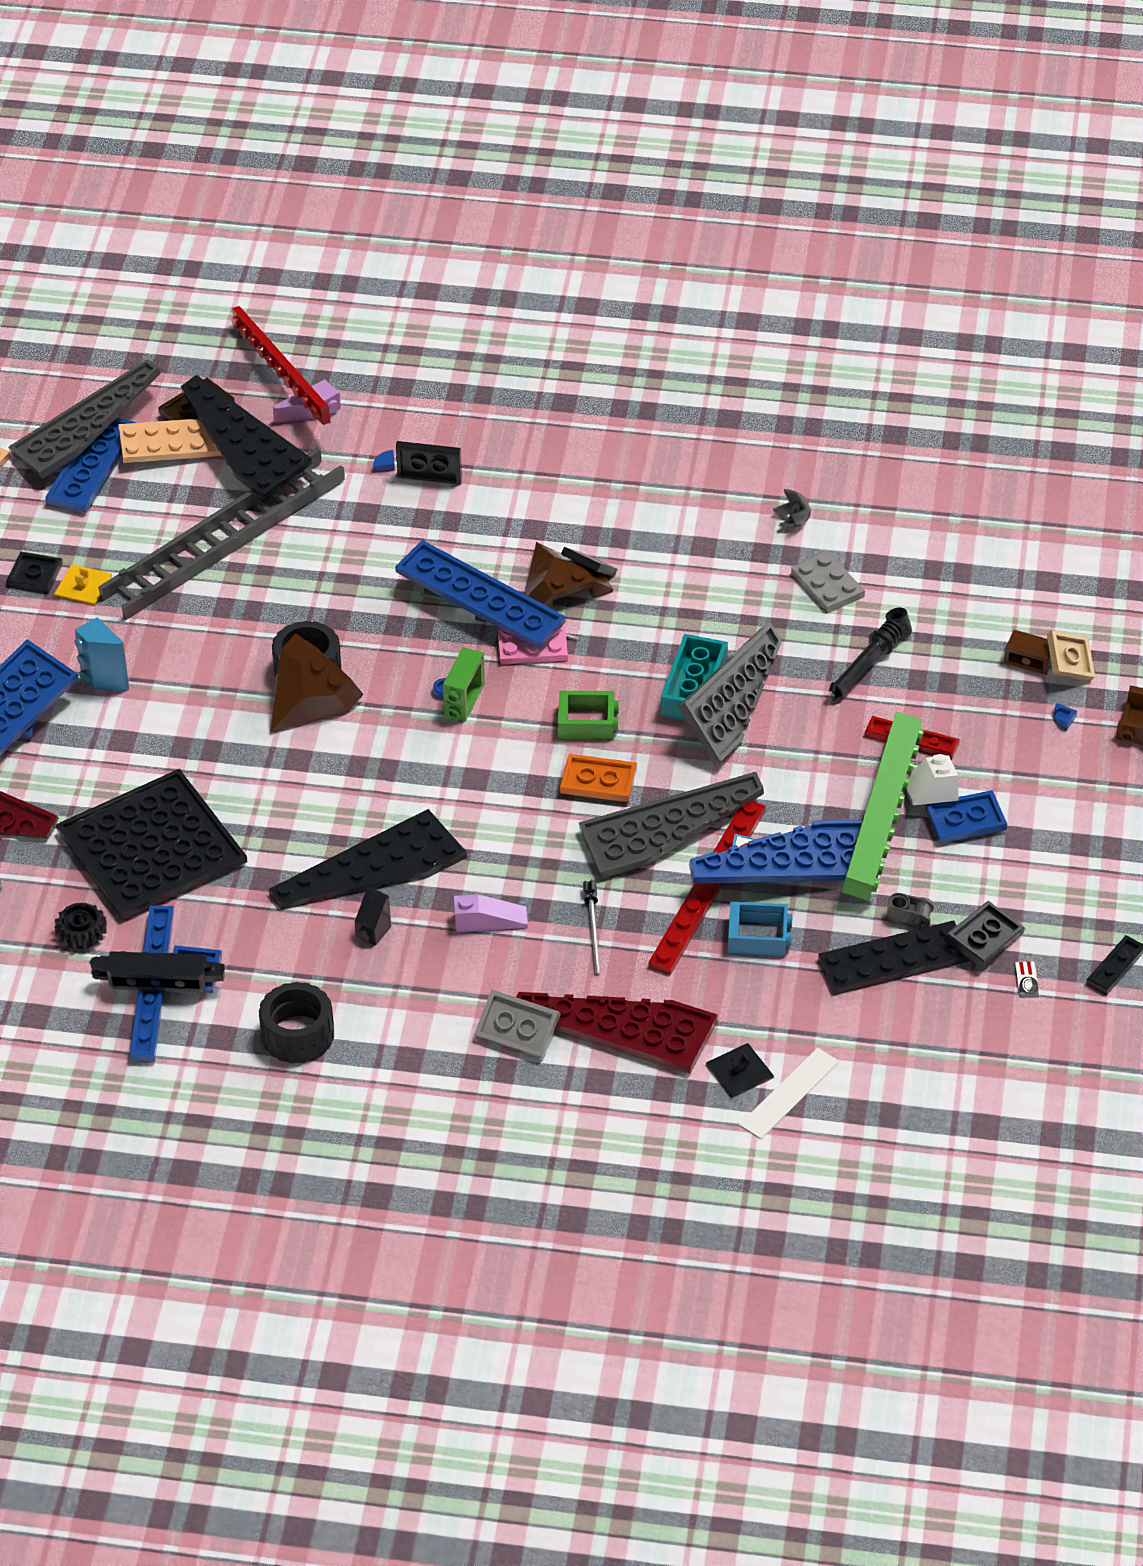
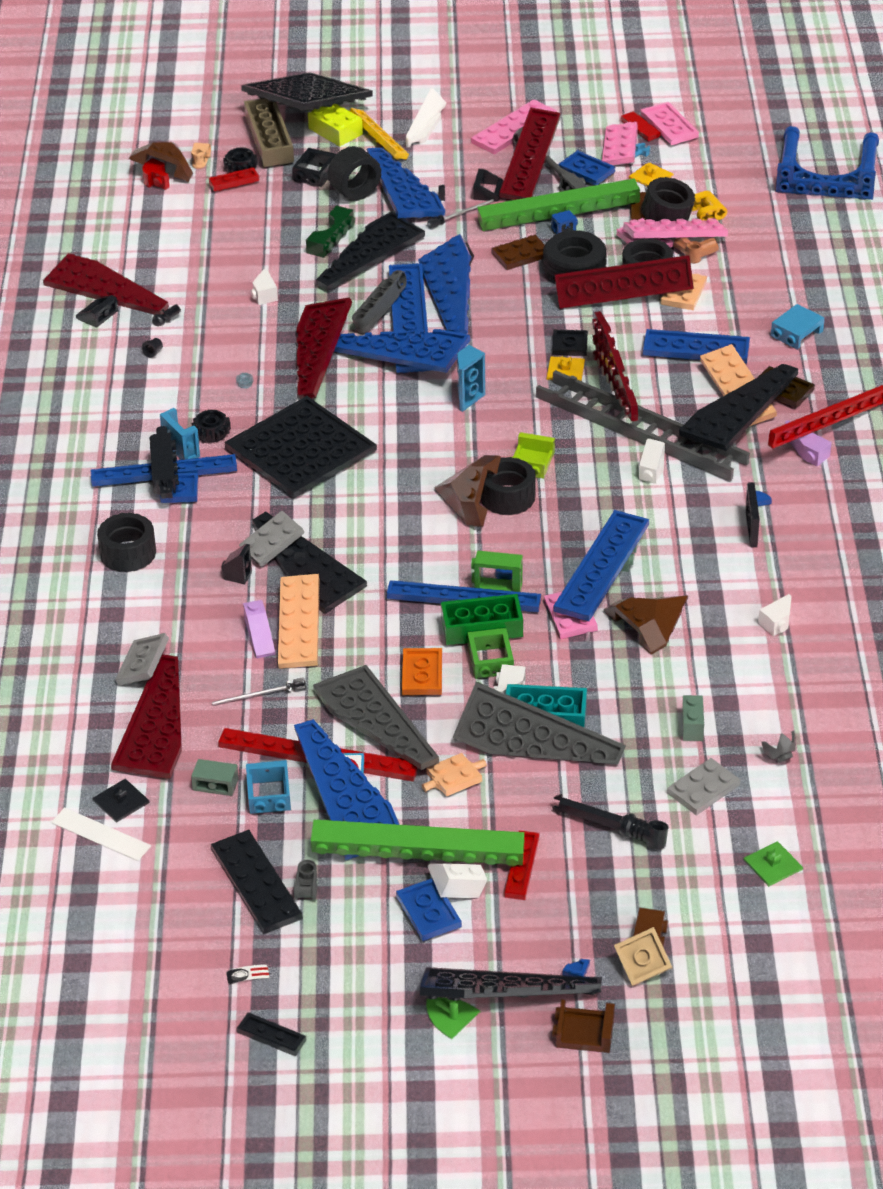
camera: 80 degrees right, 5 degrees down
(77, 427) = (718, 324): dark grey wing -> none
(82, 954) = (186, 439): none -> dark azure panel
(90, 368) = (796, 325): none -> dark azure panel
(103, 525) = (612, 366): none -> dark red wing
(245, 635) = (536, 451): none -> lime panel
(306, 529) = (652, 461): none -> white slope
(330, 883) = (273, 538): none -> light grey plate
(480, 727) = (440, 593): none -> blue plate
(485, 874) = (298, 621): none -> light nougat plate
(534, 711) = (480, 615): none -> green brick
(589, 477) = (775, 616): none -> white slope
(589, 561) = (668, 625): black tile -> none
(641, 706) = (510, 675): none -> white slope
(730, 974) = (215, 777): none -> sand green brick
(733, 568) = (693, 718): none -> sand green brick
(772, 769) = (454, 774): none -> light nougat plate
(944, 551) = (773, 863): none -> bright green piece
(984, 934) = (286, 933): black tile -> none
(1090, 773) = (481, 983): none -> black wing
(1108, 821) = (450, 1015): none -> bright green shield

